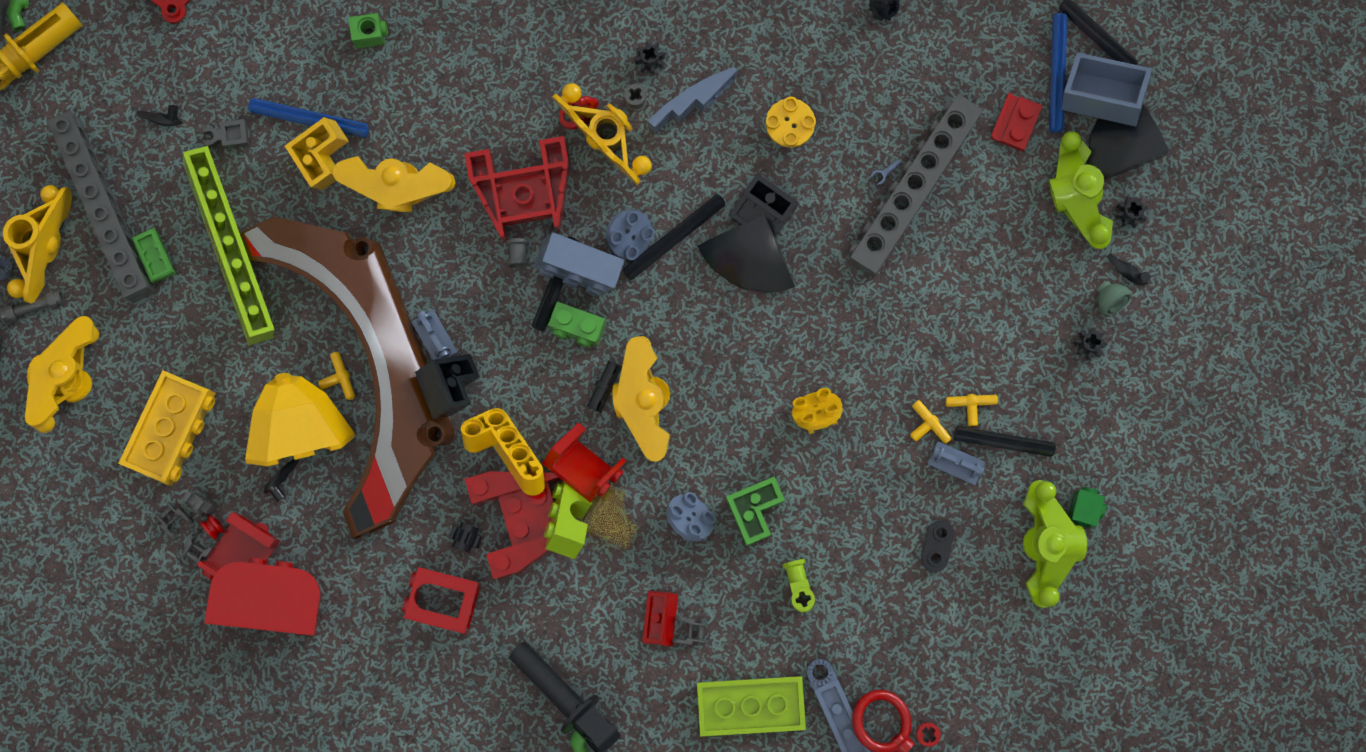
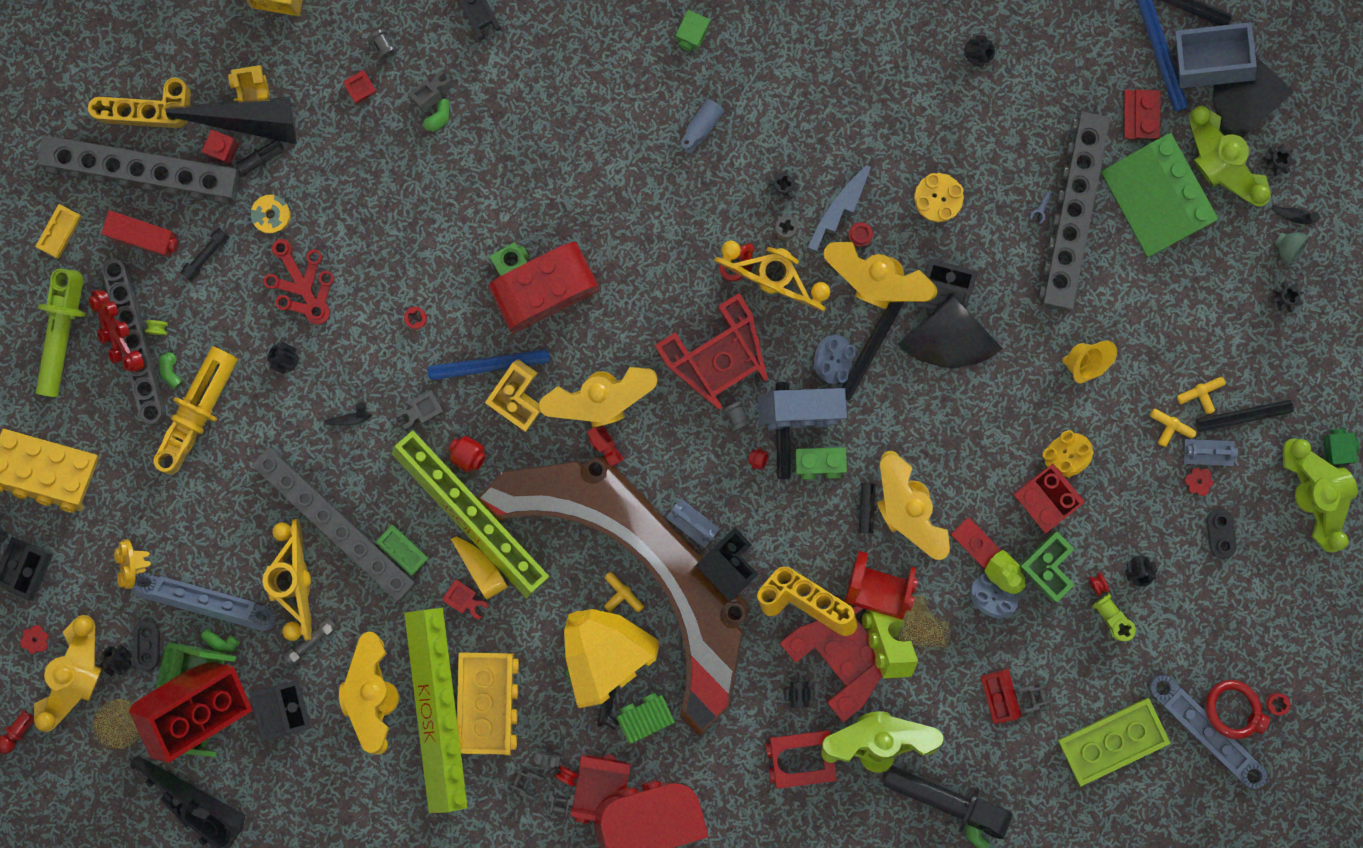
camera: 25 degrees left, 5 degrees up
(116, 415) = (435, 710): none -> lime brick
(122, 38) = (283, 358): none -> black gear
(189, 321) = (461, 597): none -> red plate
(218, 302) = (481, 568): none -> yellow piece
(251, 190) = (467, 454): none -> red head
(258, 57) = (413, 310): none -> red bush
(309, 502) = (645, 718): none -> bright green brick
(382, 227) = (604, 443): none -> red plate
(386, 62) = (543, 286): none -> red brick
(518, 298) = (758, 459): none -> red plate
(520, 610) = (878, 739): none -> lime piece
(696, 461) = (975, 542): none -> red plate
(701, 172) = (878, 277): none -> yellow piece
(704, 131) = (860, 234): none -> red plate
(710, 499) = (1005, 573): none -> lime rock
(780, 443) = (1048, 498): none -> red slope
(797, 546) = (1098, 584): none -> red bush
(843, 549) = (1141, 571): none -> black gear
(875, 330) = (1089, 360): none -> yellow piece
(942, 484) = (1204, 475): none -> red plant
(1003, 201) = (1159, 195): none -> bright green slope

